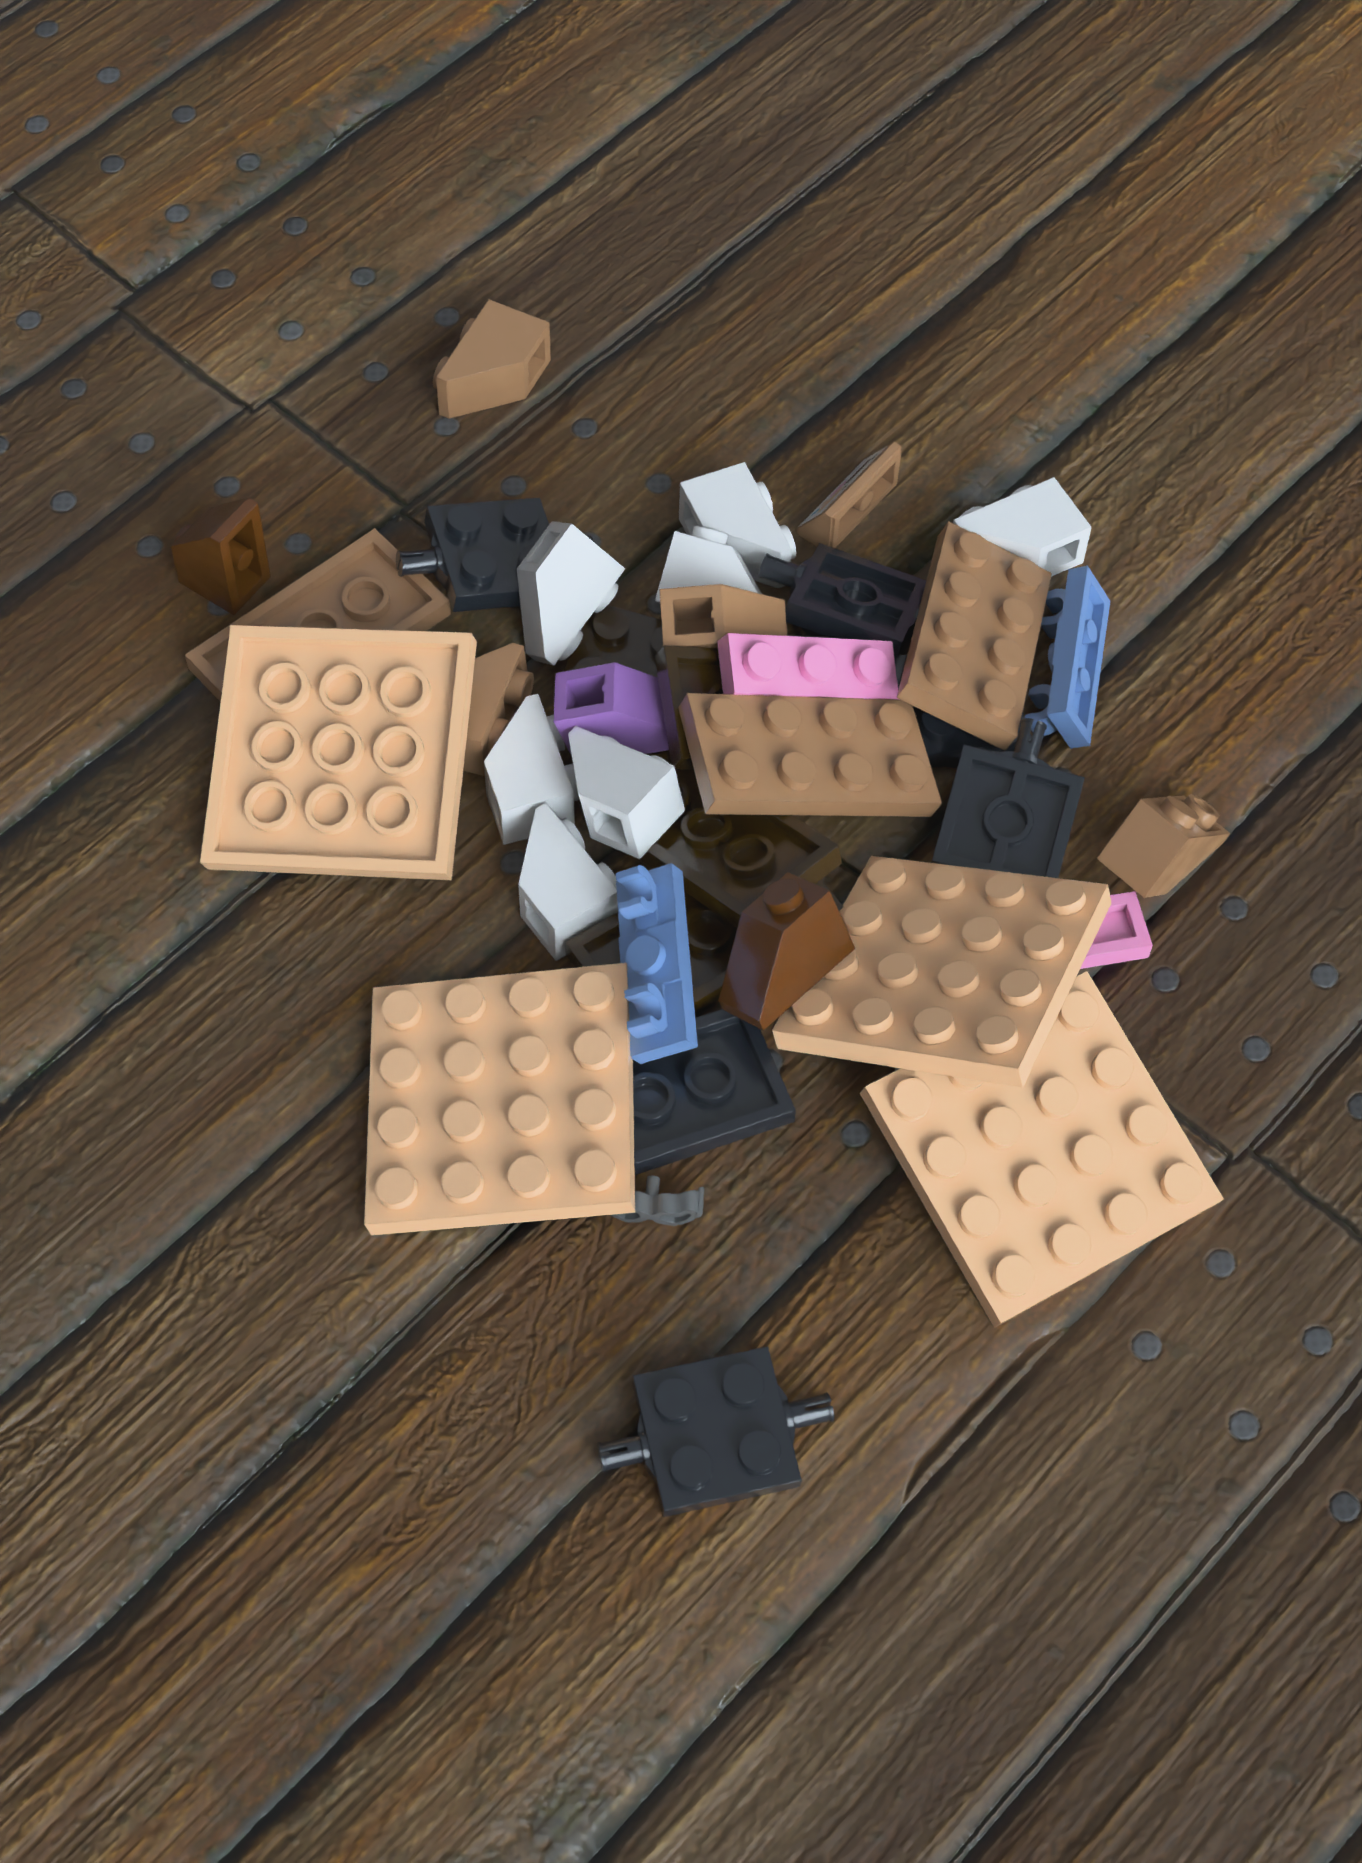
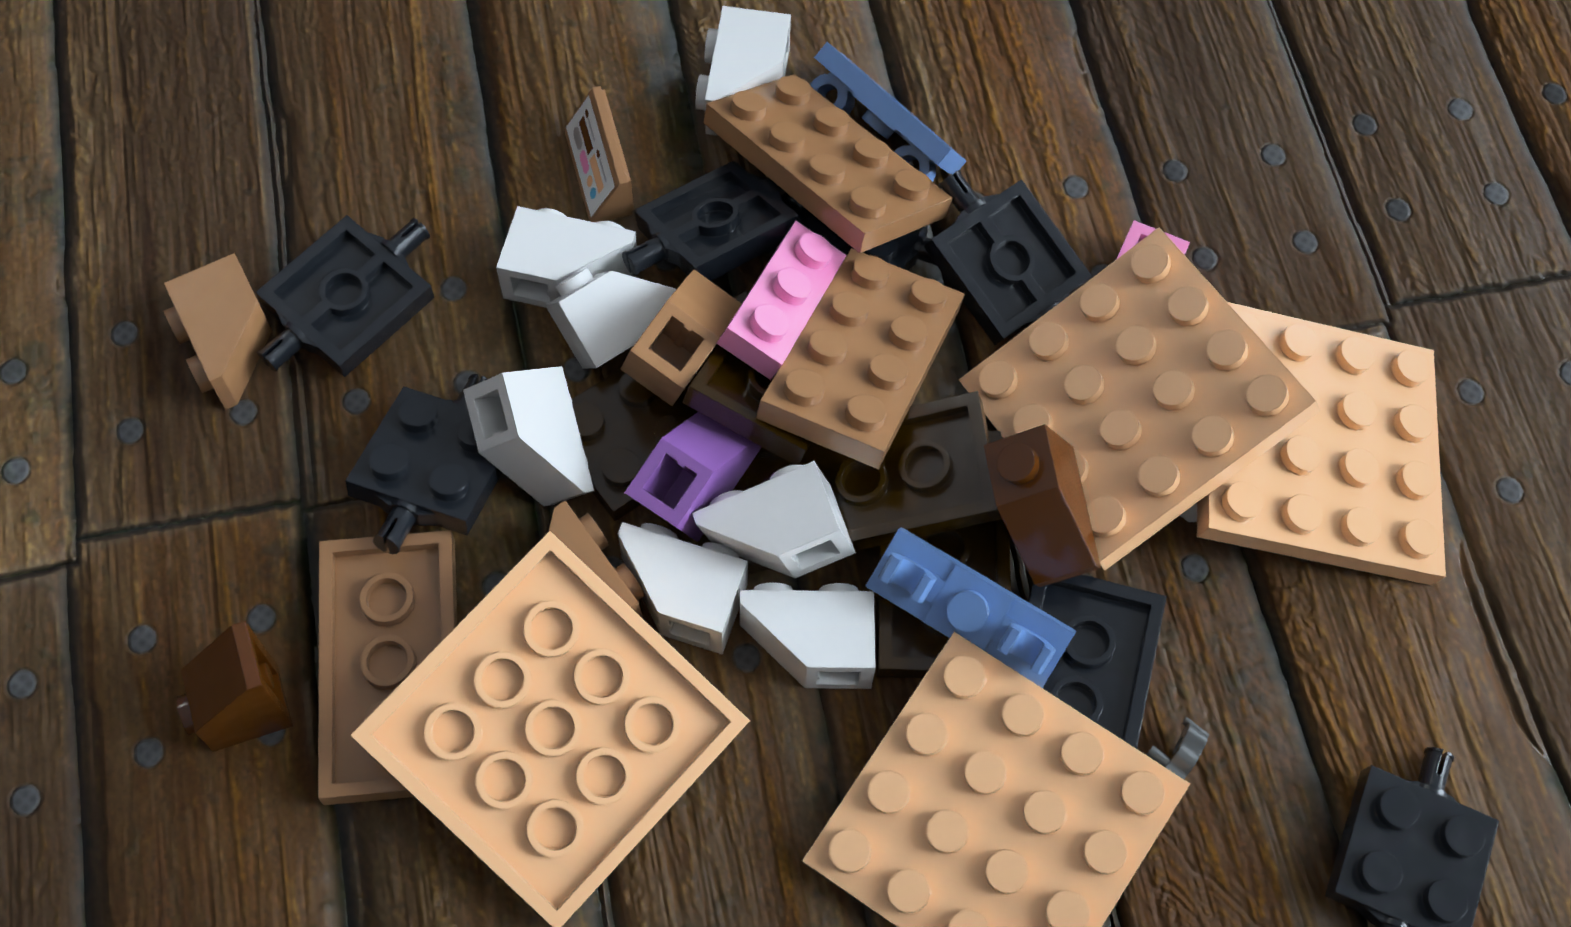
camera: 55 degrees left, 5 degrees up
(585, 417) = (345, 295): none -> black plate
(1163, 842) = (1104, 172): medium nougat slope -> none

